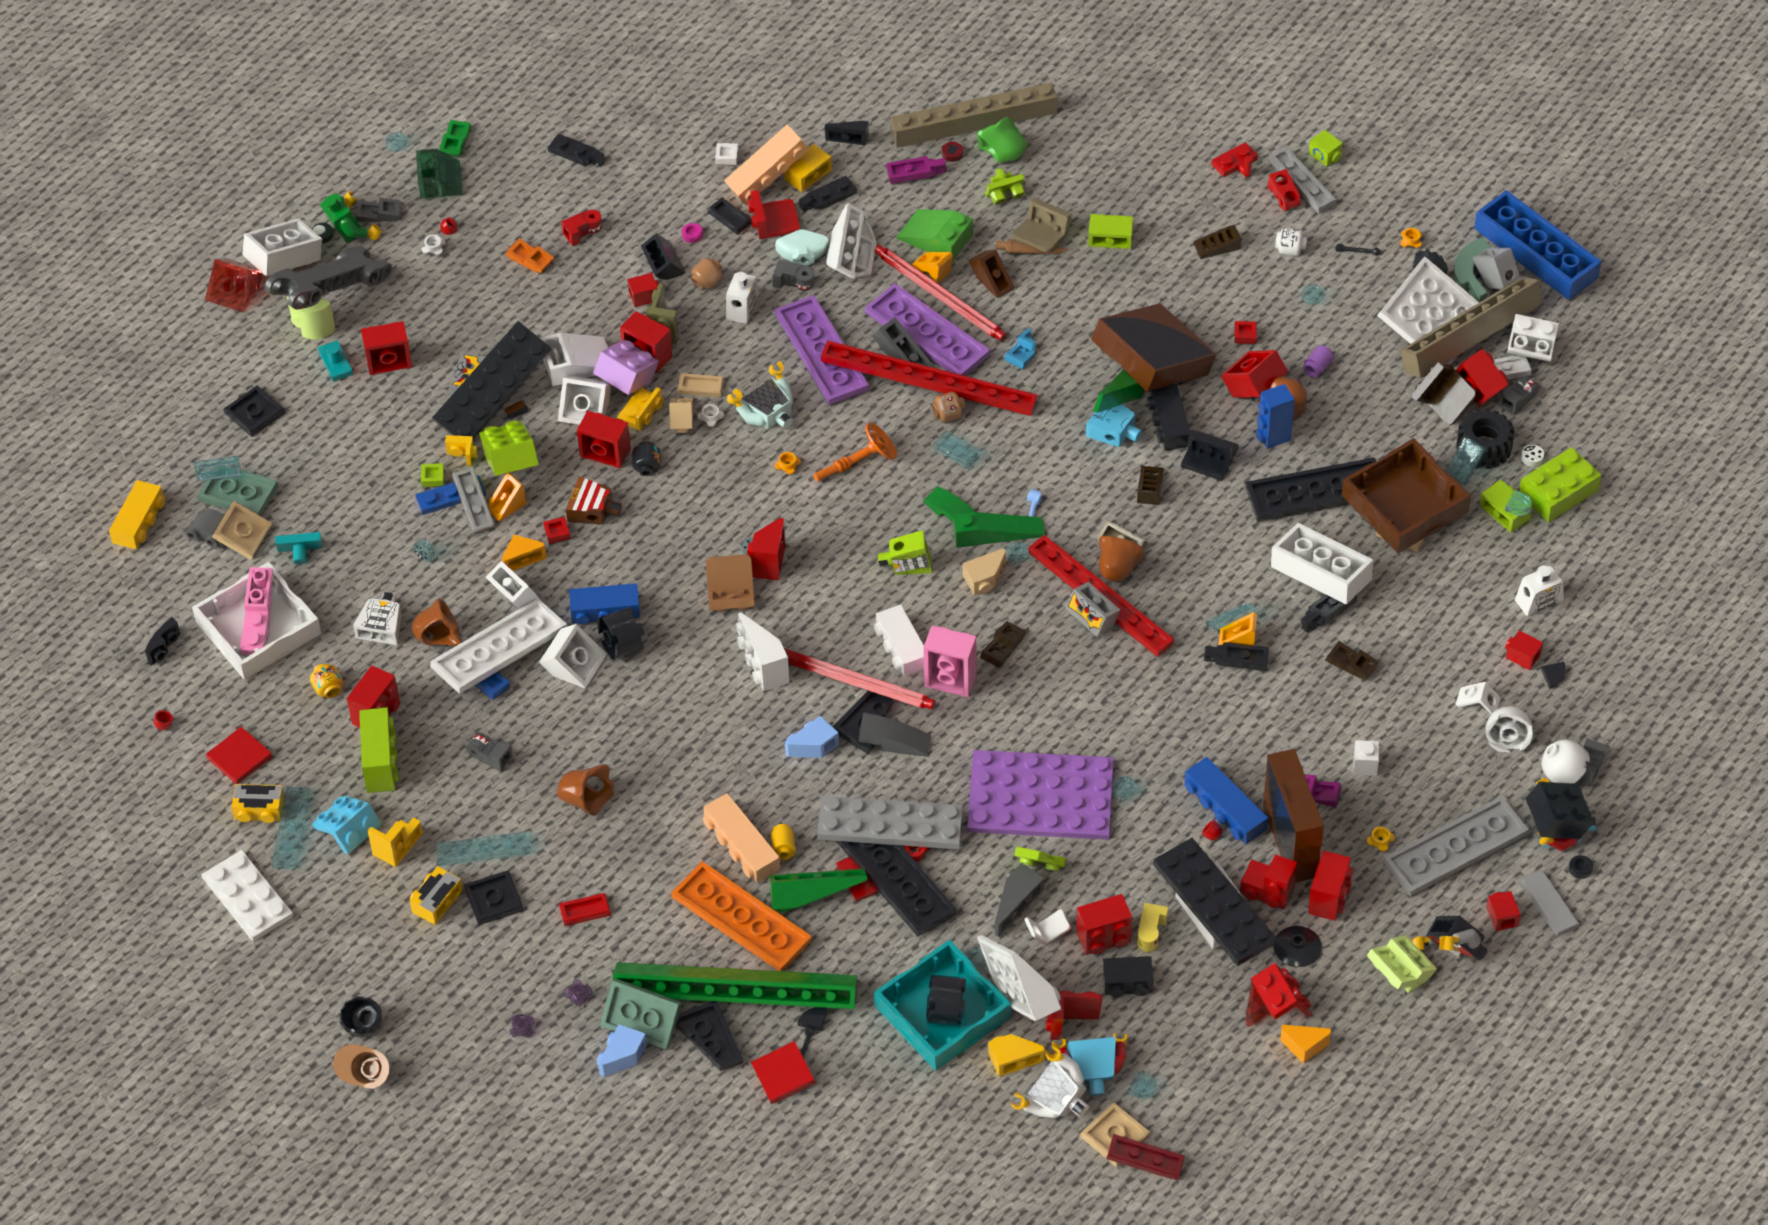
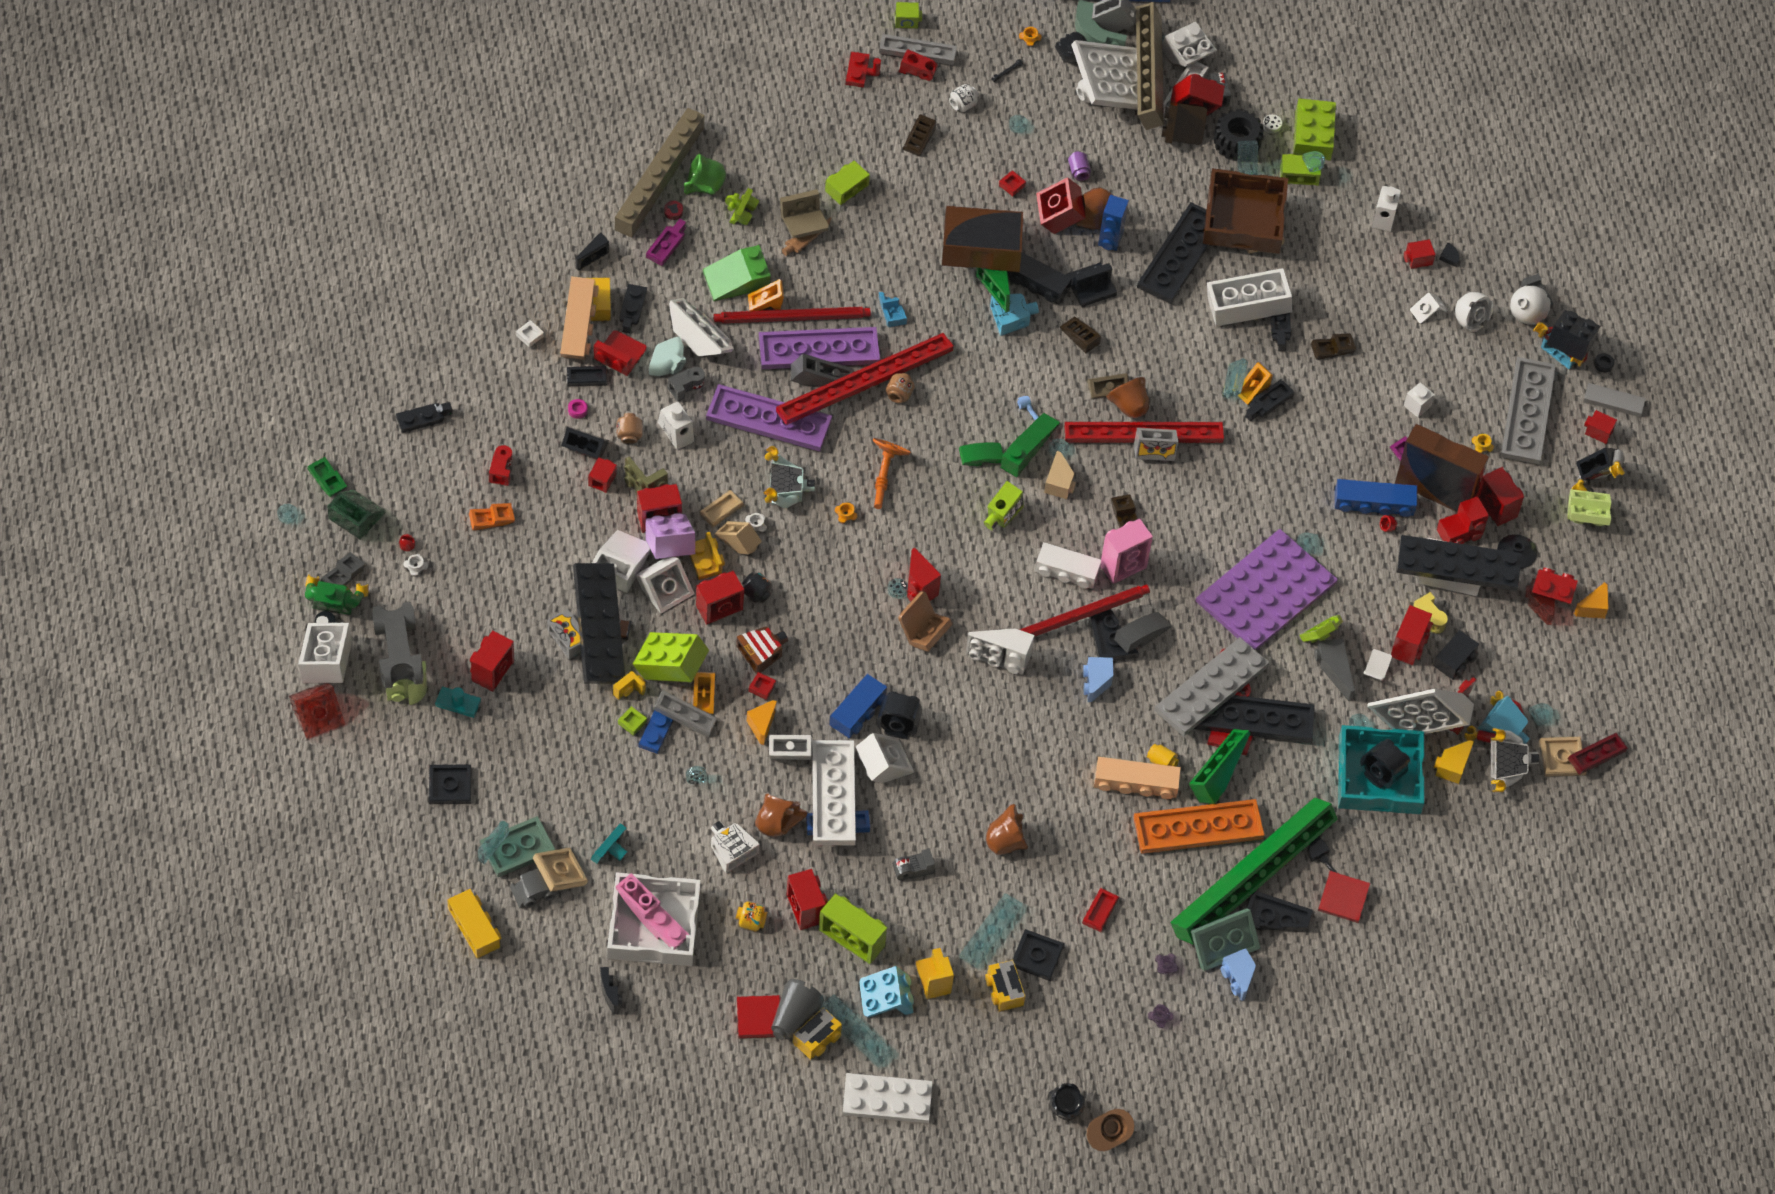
camera: 55 degrees left, 5 degrees up
(163, 720) = (677, 1039): red hinge -> none
(258, 768) = (795, 1008): none -> dark grey cone
(957, 449) = (937, 412): clear light blue tile -> none
(991, 272) = (808, 273): reddish brown slope -> none

